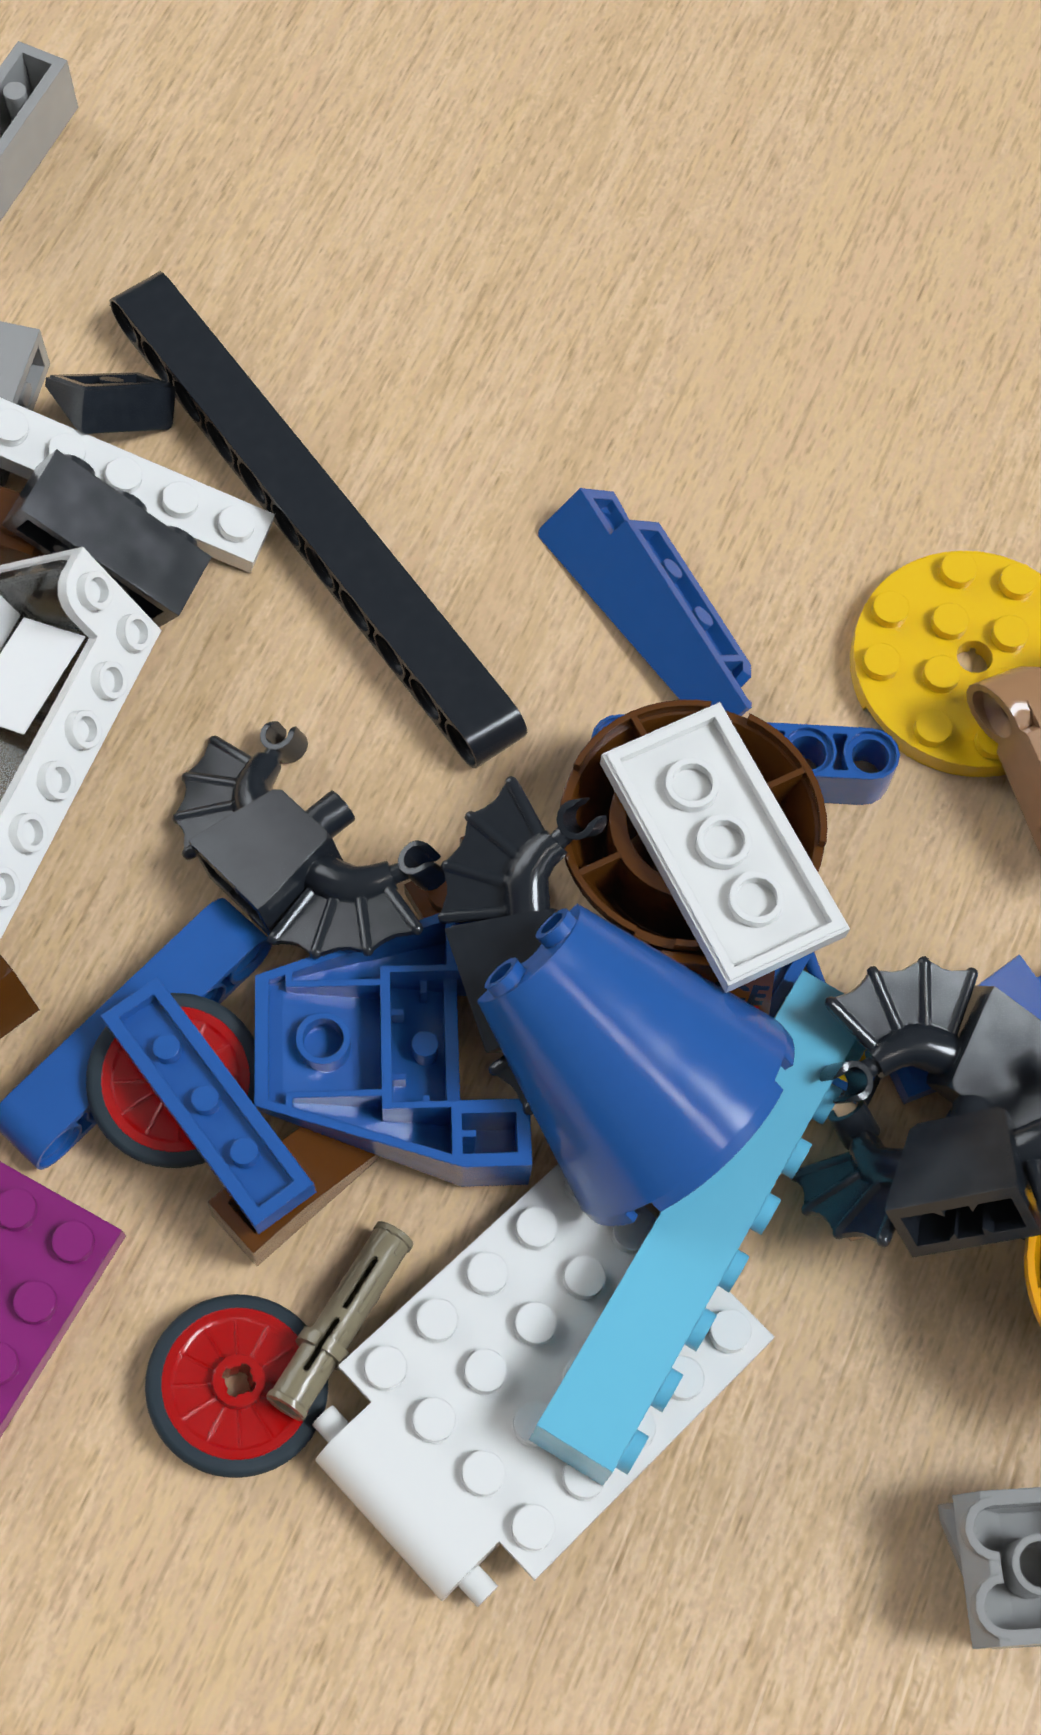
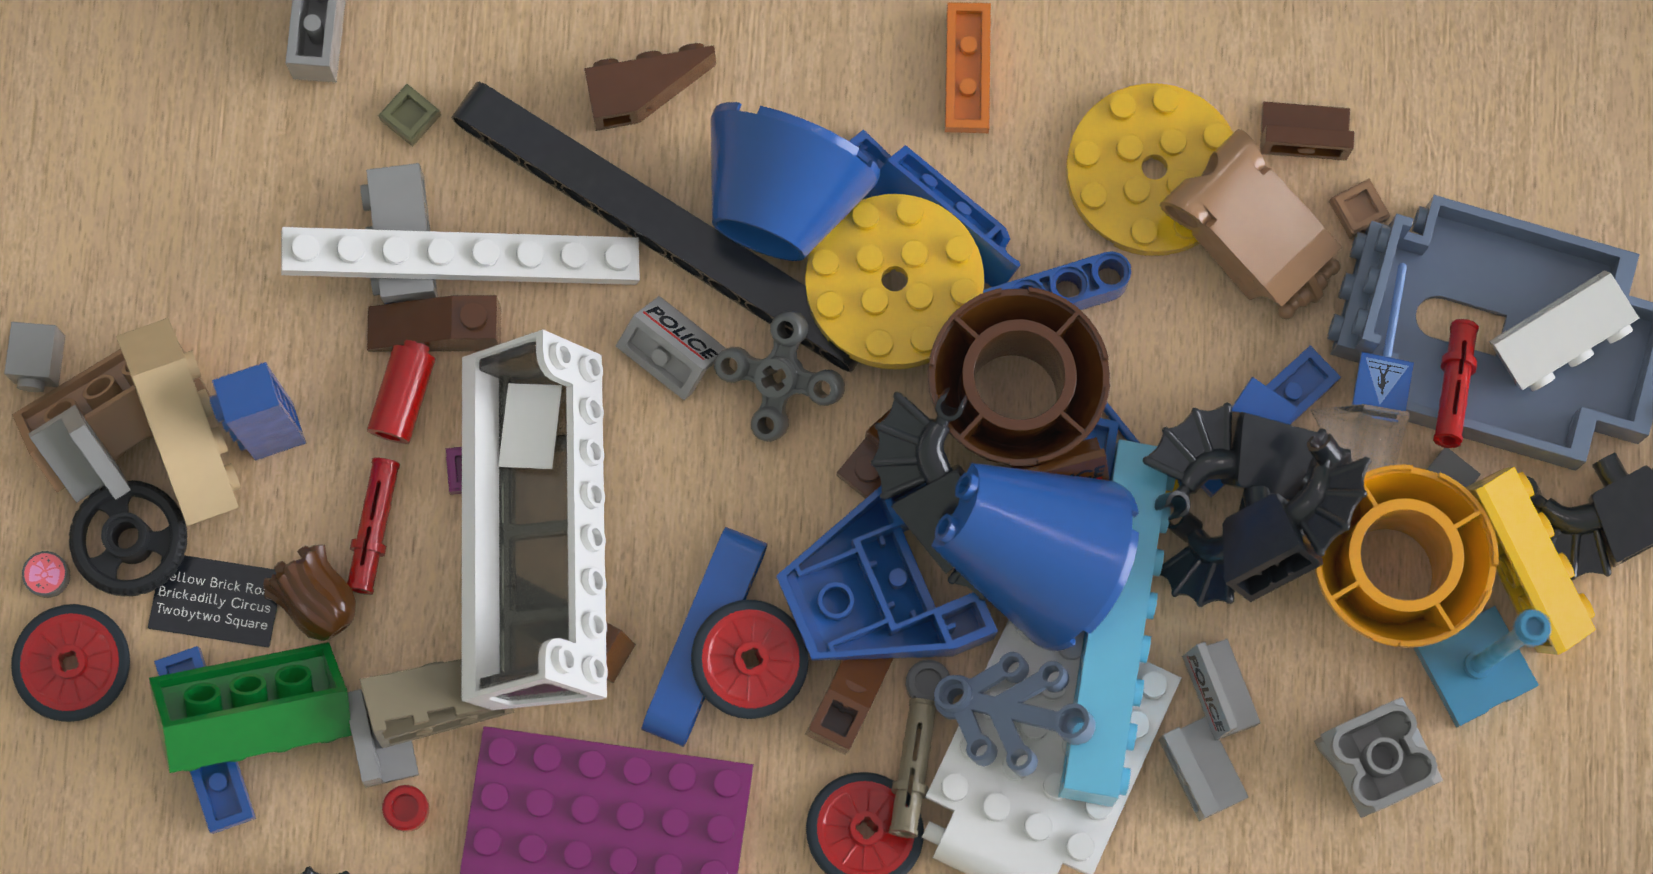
camera: 20 degrees left, 10 degrees up
(64, 290) = (409, 115): none -> olive tile
(73, 509) = (538, 301): black brick -> none
(114, 401) = (492, 195): black slope -> none
(209, 1105) = (784, 669): blue plate -> none
(255, 654) = (669, 346): none -> light grey panel
(284, 859) = (755, 488): black torso -> none
(355, 346) = (636, 88): none -> reddish brown slope
(393, 742) = (797, 378): none -> dark grey gear
(415, 1207) = (923, 679): none -> dark grey tile
(447, 1242) = (1008, 708): none -> sand blue plant
(479, 476) = (781, 180): none -> blue cone
(550, 609) = (848, 269): none -> yellow plate
(723, 847) = (1045, 386): white tile -> none
(760, 1482) = (1203, 768): none -> light grey panel
(773, 462) = (967, 67): none -> orange plate
(826, 1375) = (1221, 688): none -> light grey panel

